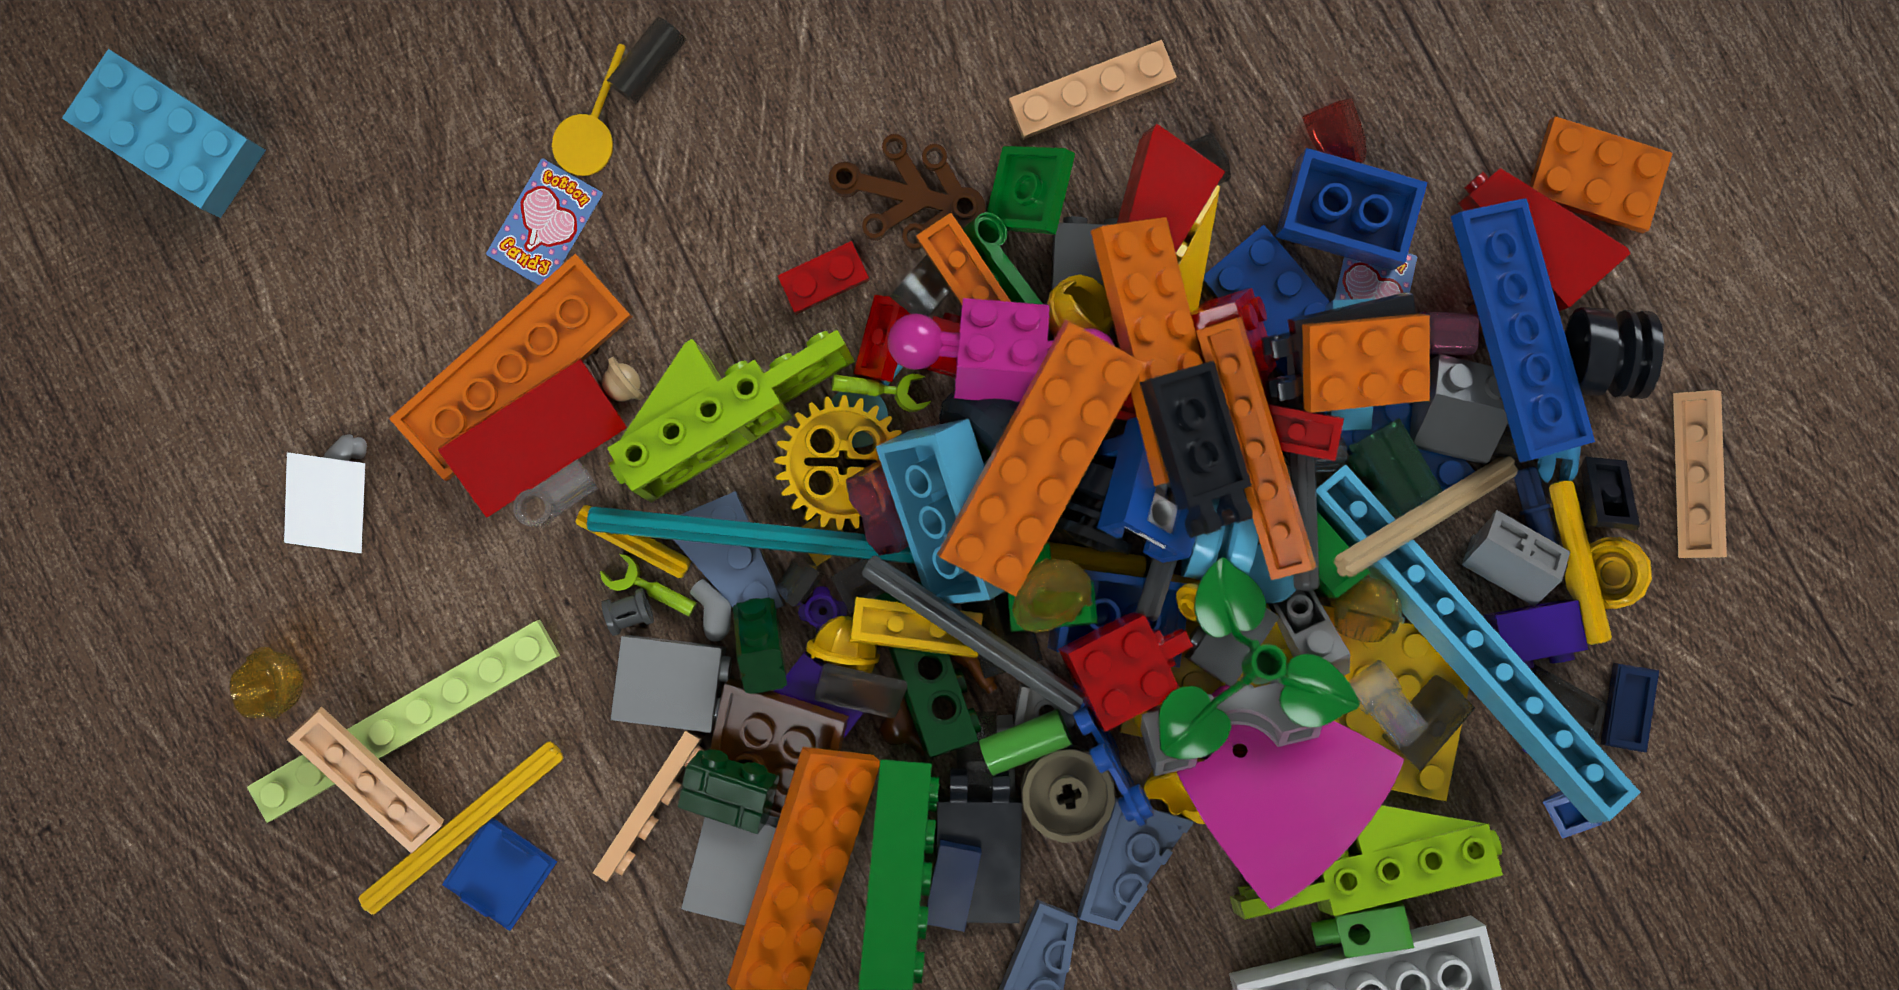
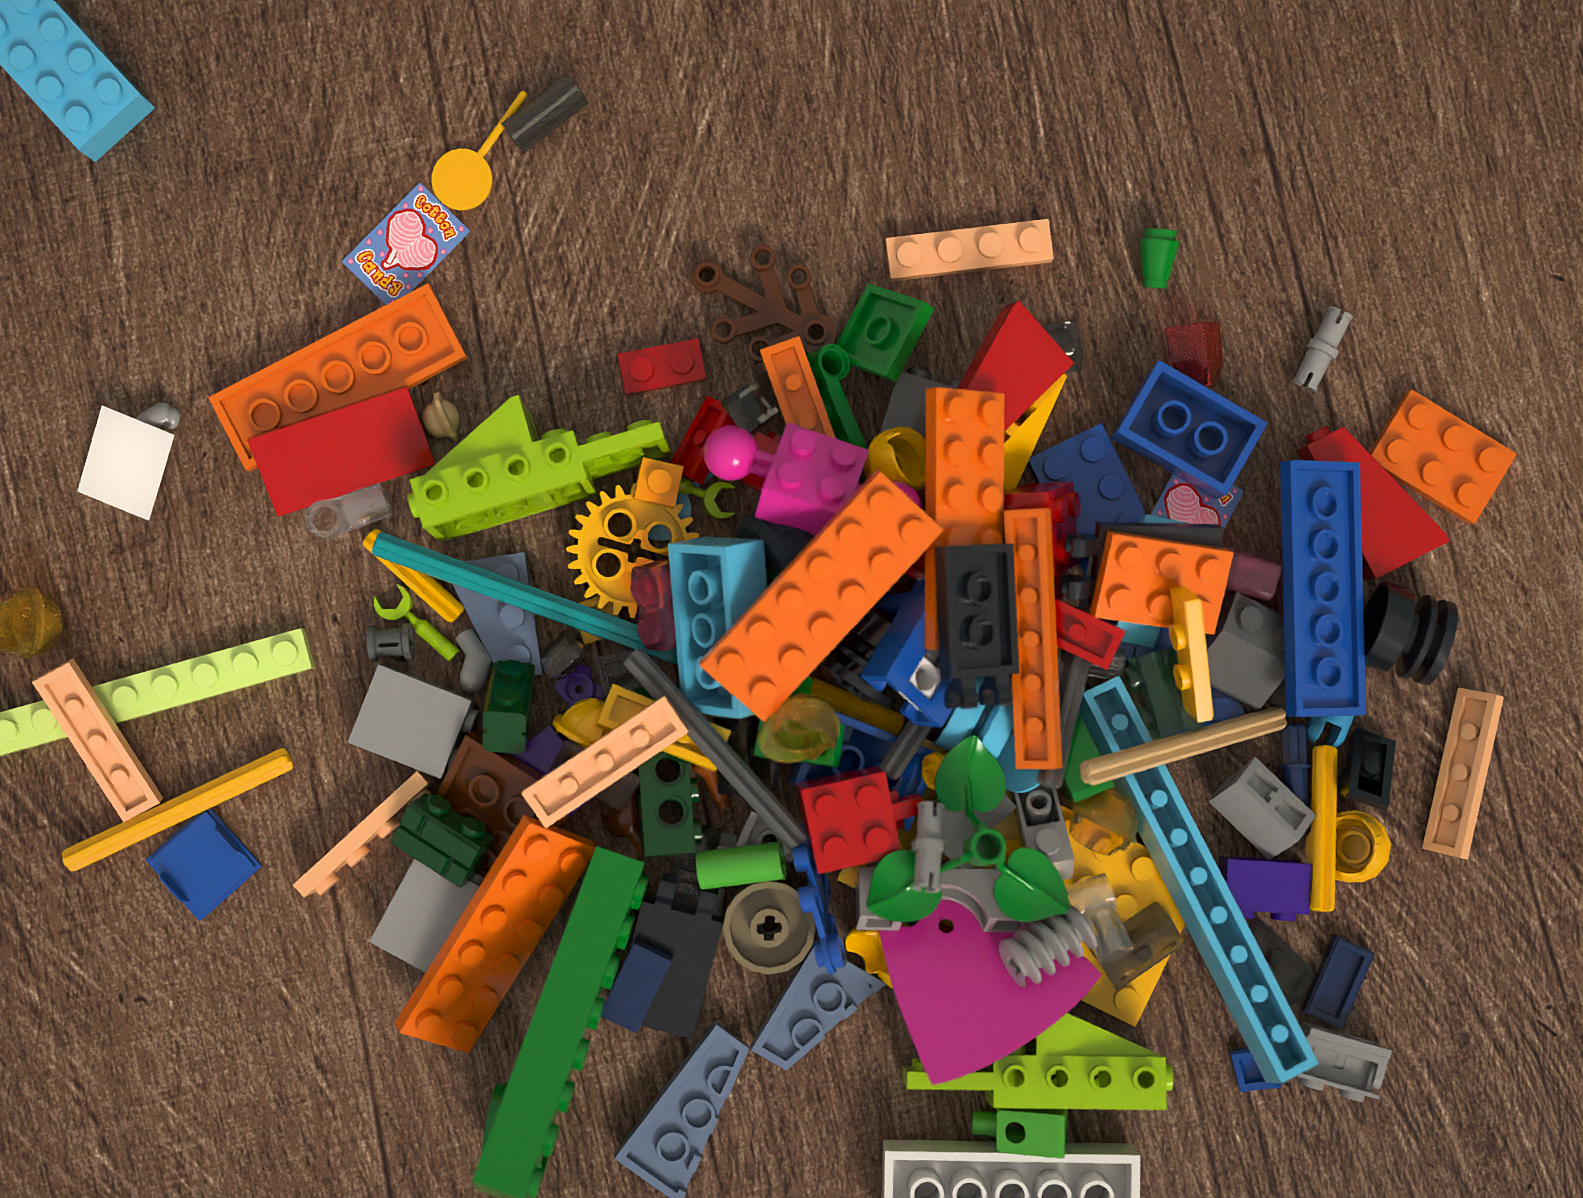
camera: 15 degrees right, 0 degrees up
(849, 390) = (658, 482): none -> light orange plate
(868, 674) = (605, 761): none -> light nougat plate
(1206, 678) = (928, 847): none -> light grey pin
(1276, 49) = (1157, 256): none -> green cone
(1343, 741) = (1045, 942): none -> light grey piece
(1411, 414) = (1188, 639): none -> yellow plate
(1458, 98) = (1322, 348): none -> light grey pin
(1664, 783) = (1344, 1062): none -> light grey hinge

